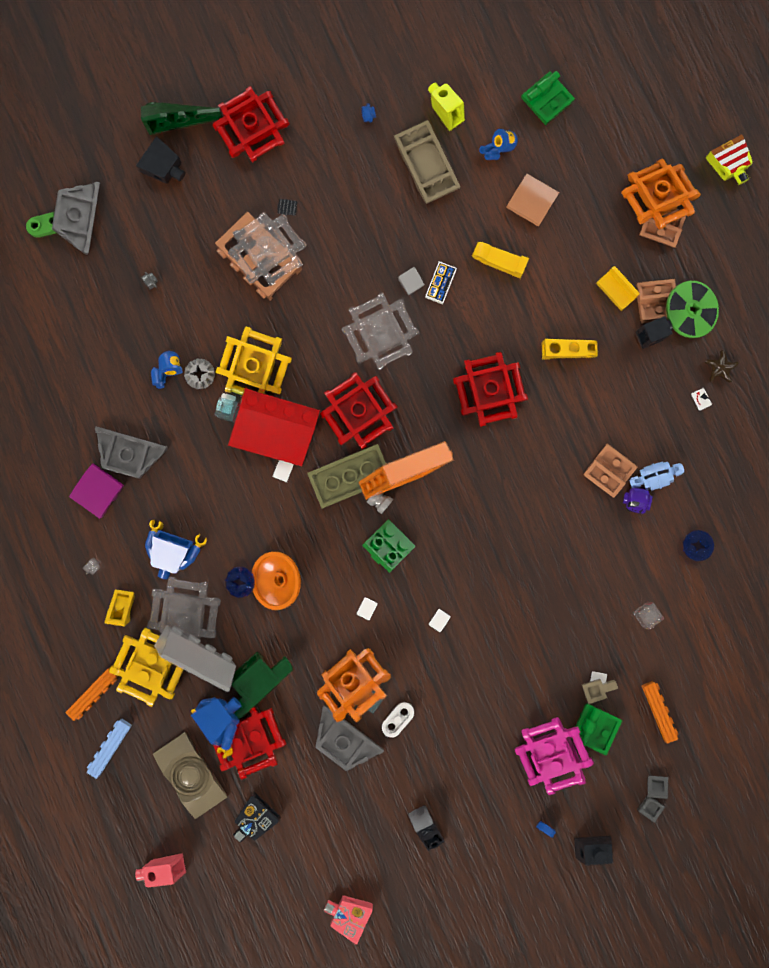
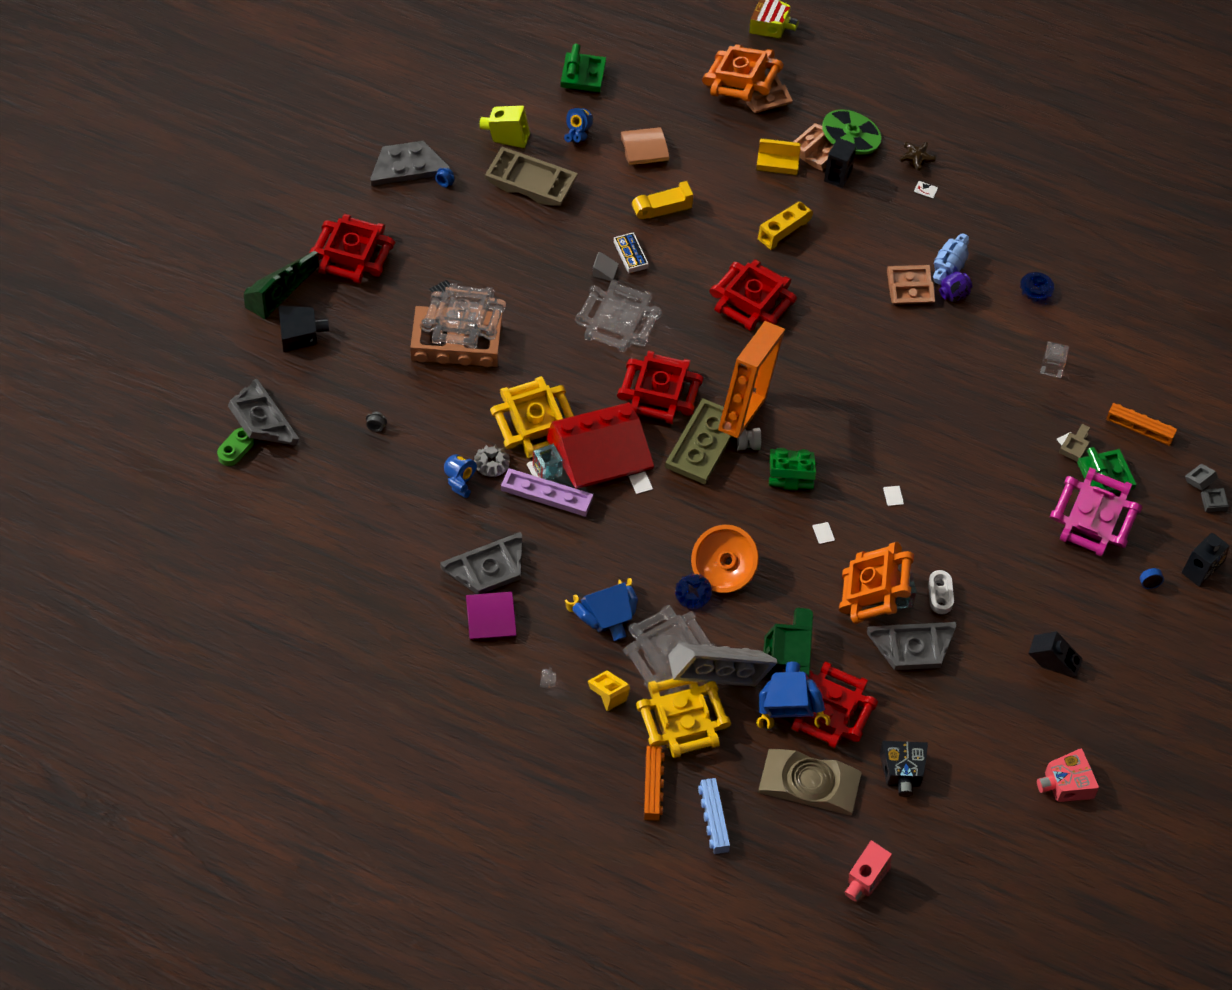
camera: 45 degrees left, 30 degrees down
(211, 429) = (547, 492): none -> lavender plate
(353, 78) = (406, 163): none -> flat silver wing

